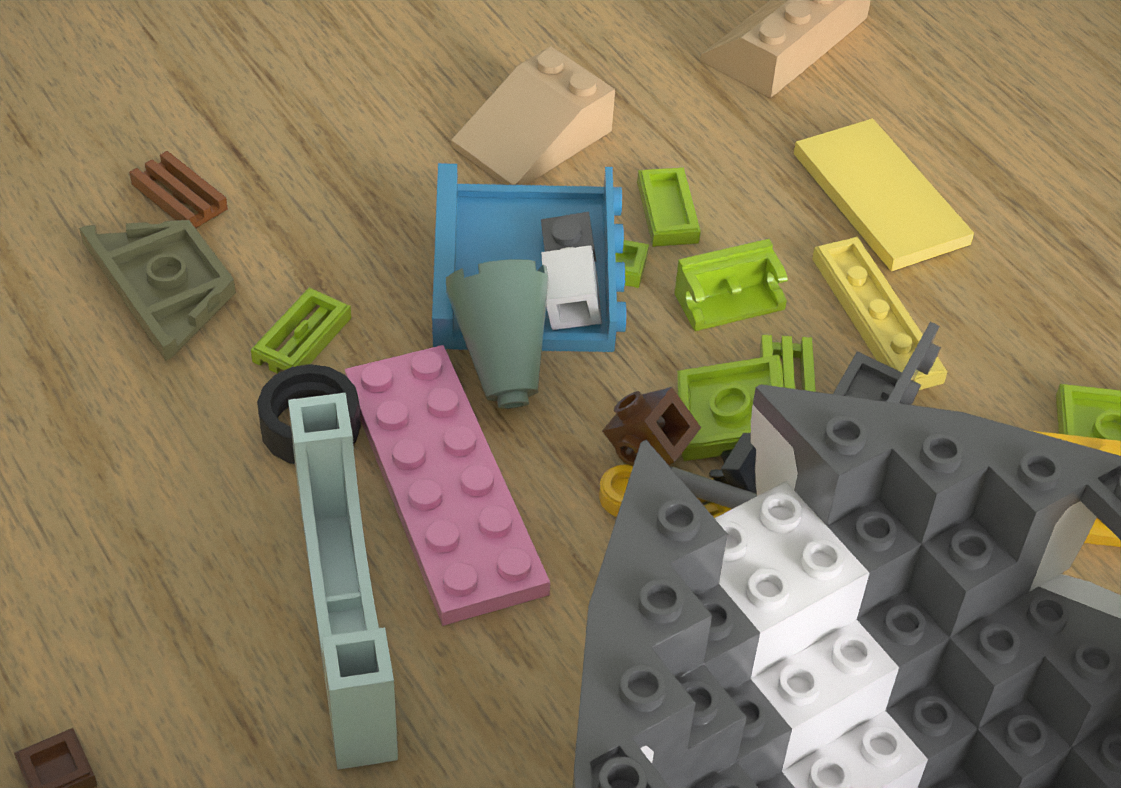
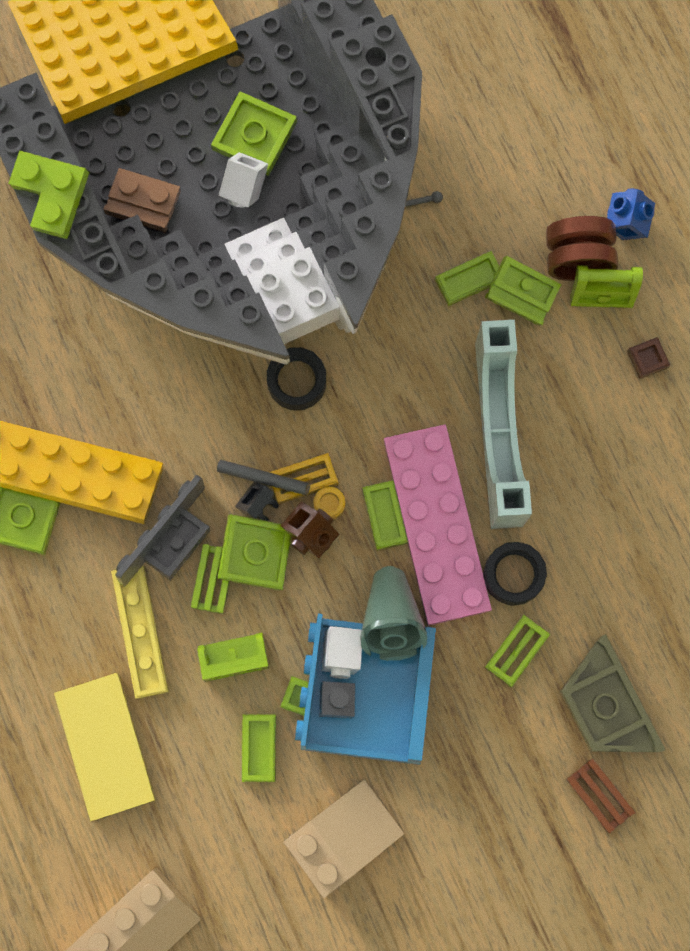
camera: 170 degrees left, 30 degrees up
(533, 482) = (385, 515): none -> lime tile

